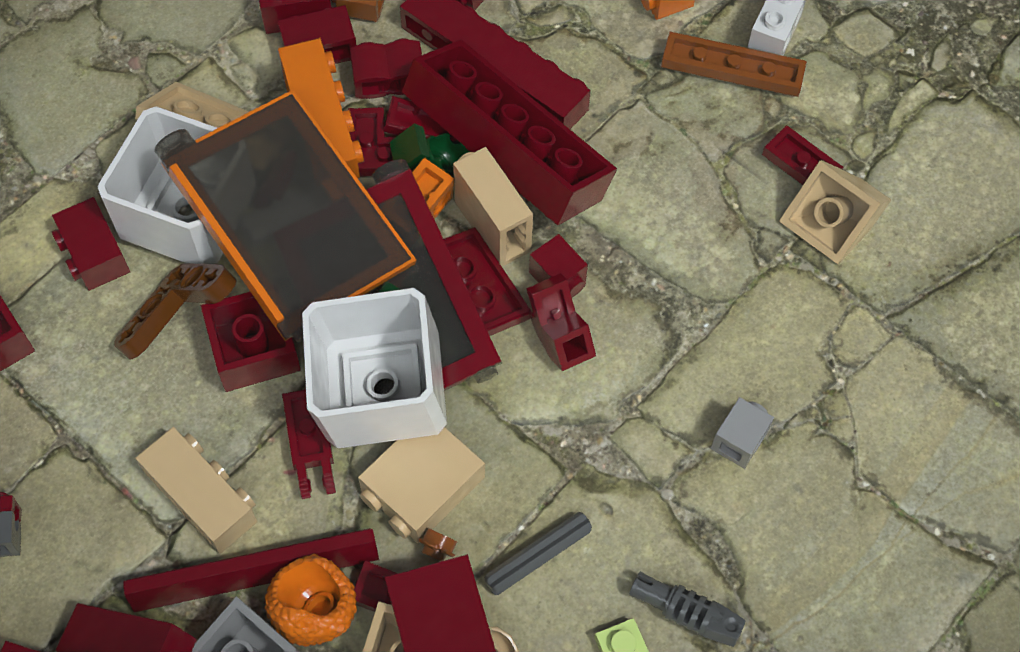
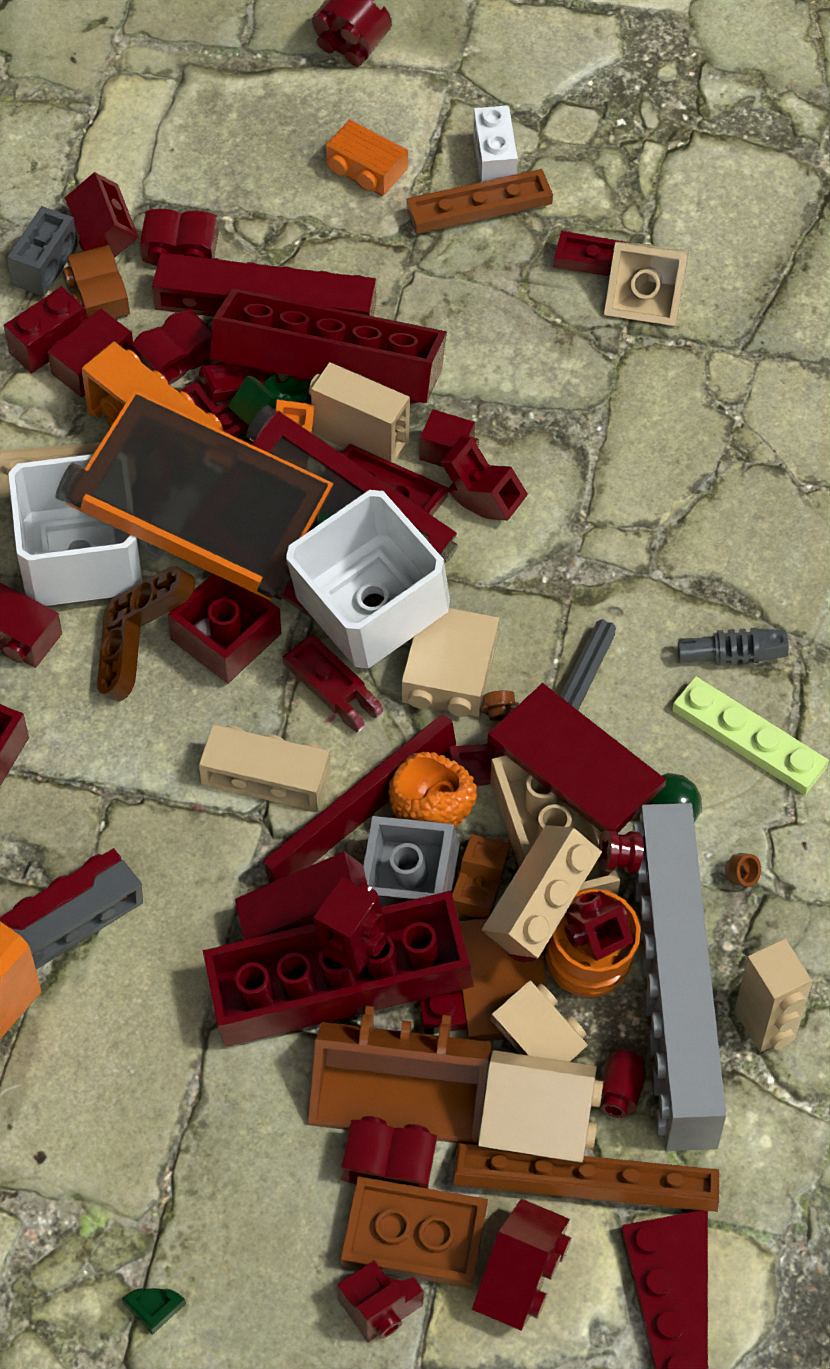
camera: 30 degrees left, 5 degrees down
(742, 432) = (688, 493): light grey brick -> none

